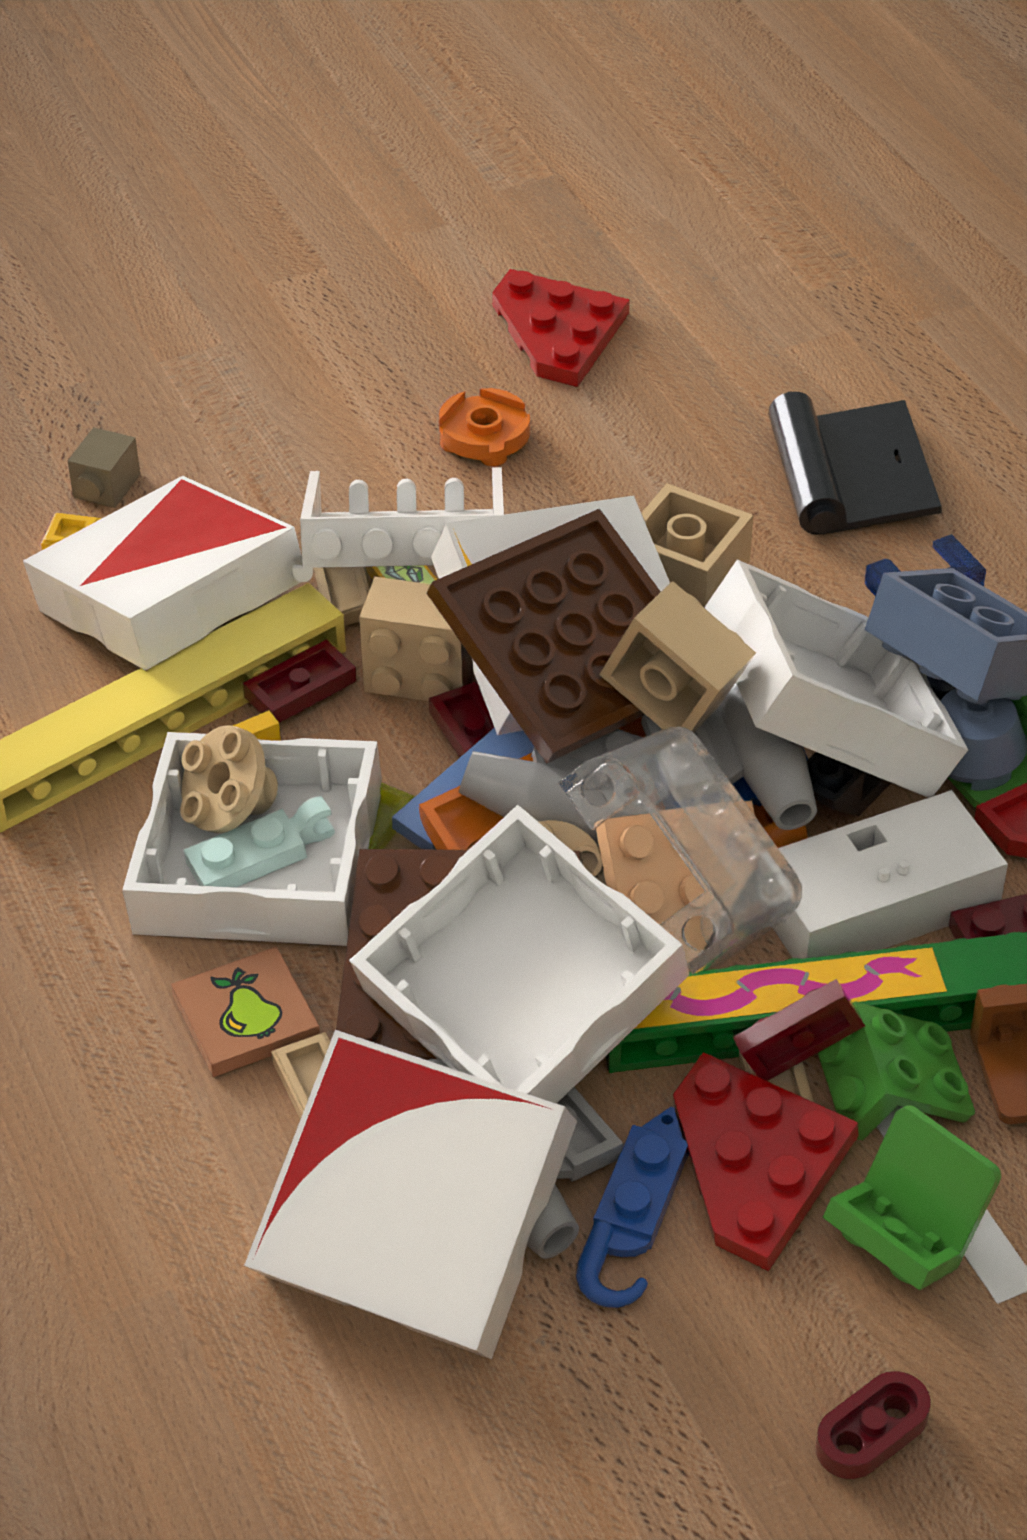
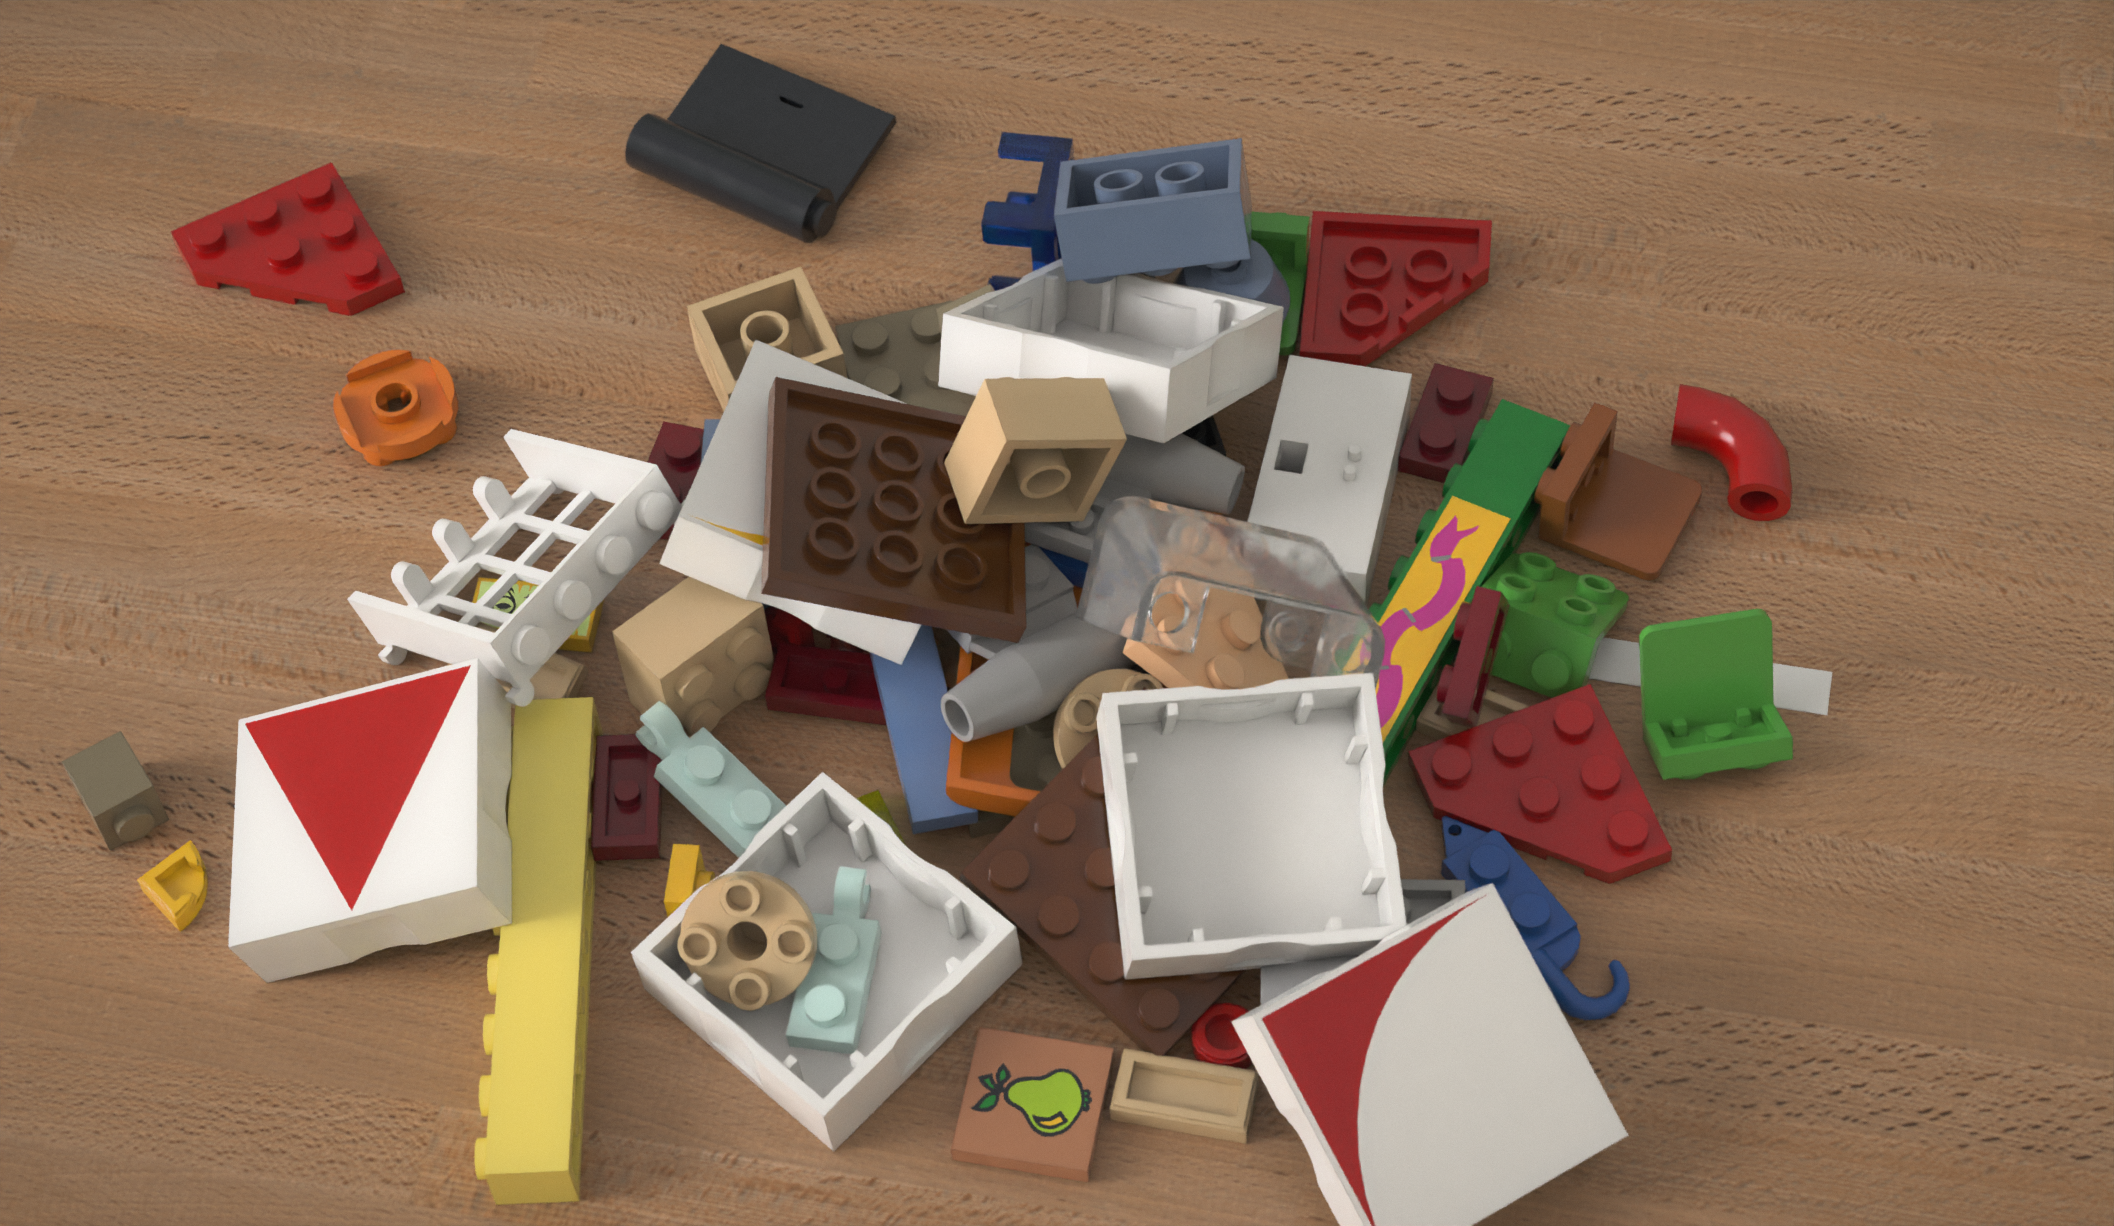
camera: 50 degrees left, 10 degrees up
(342, 697) = (708, 779): none -> light aqua plate
(867, 1426) = (1898, 889): dark red plate -> none

